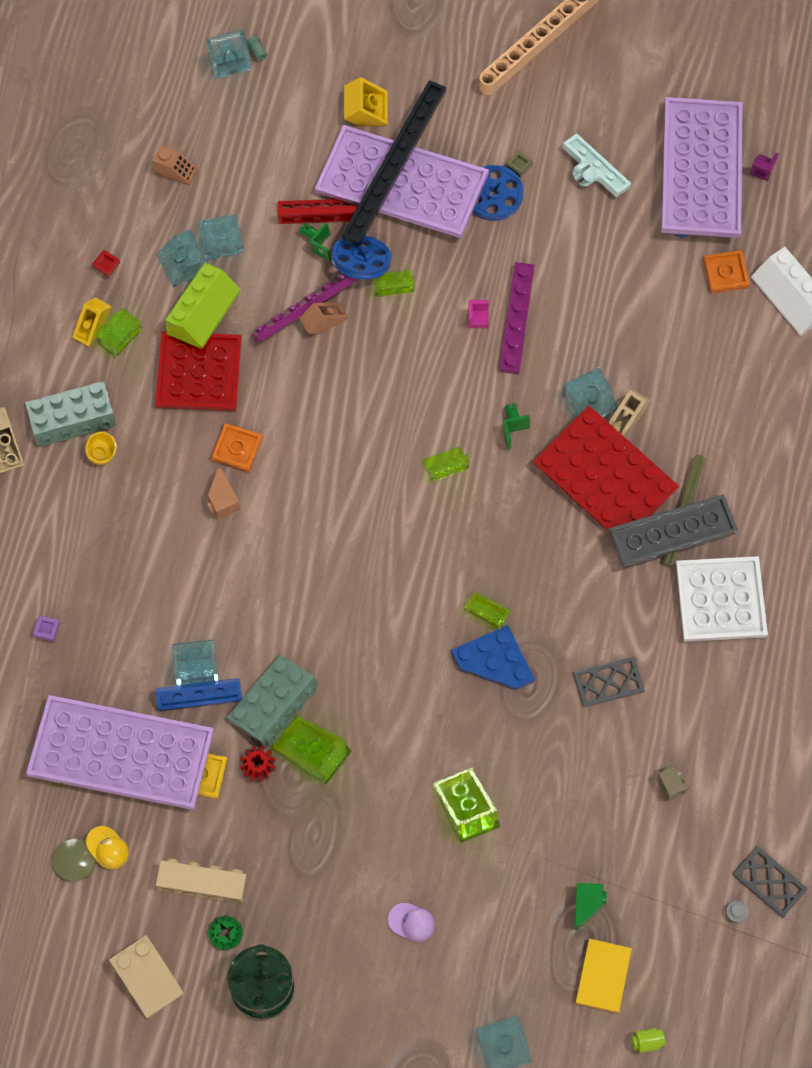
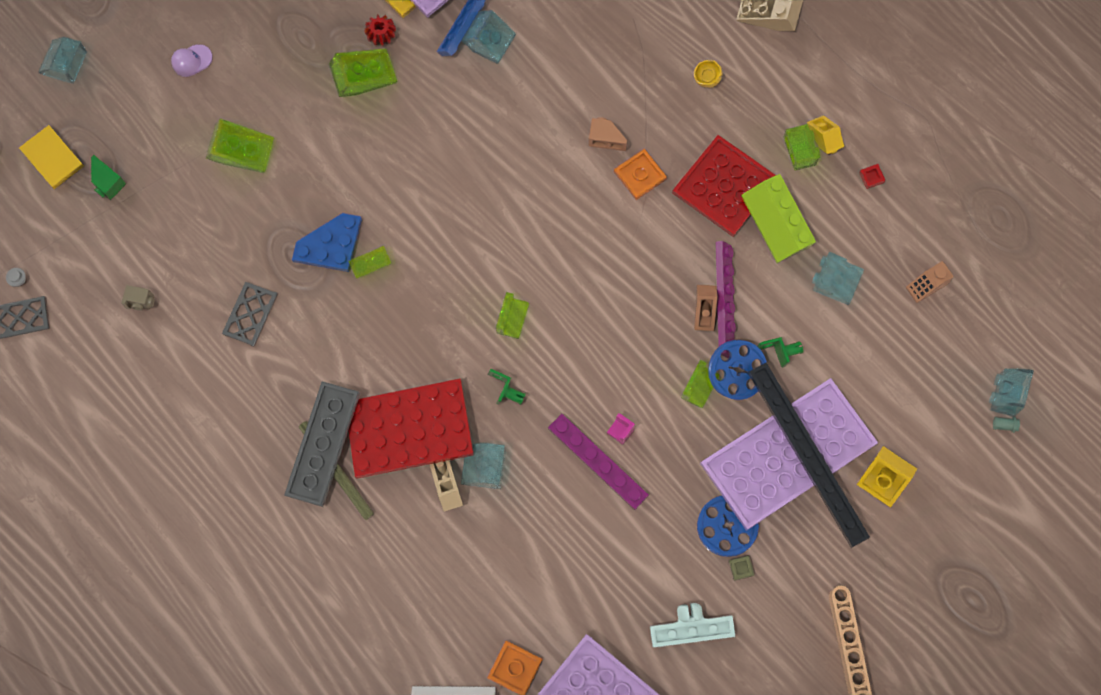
camera: 130 degrees right, 5 degrees up
(70, 414) = (755, 72): sand green bracket -> none
(182, 258) = (835, 236): clear light blue slope -> none
(273, 701) = (418, 69): sand green bracket -> none
(314, 214) = (806, 362): red fence -> none
(721, 599) = (243, 442): white plate -> none

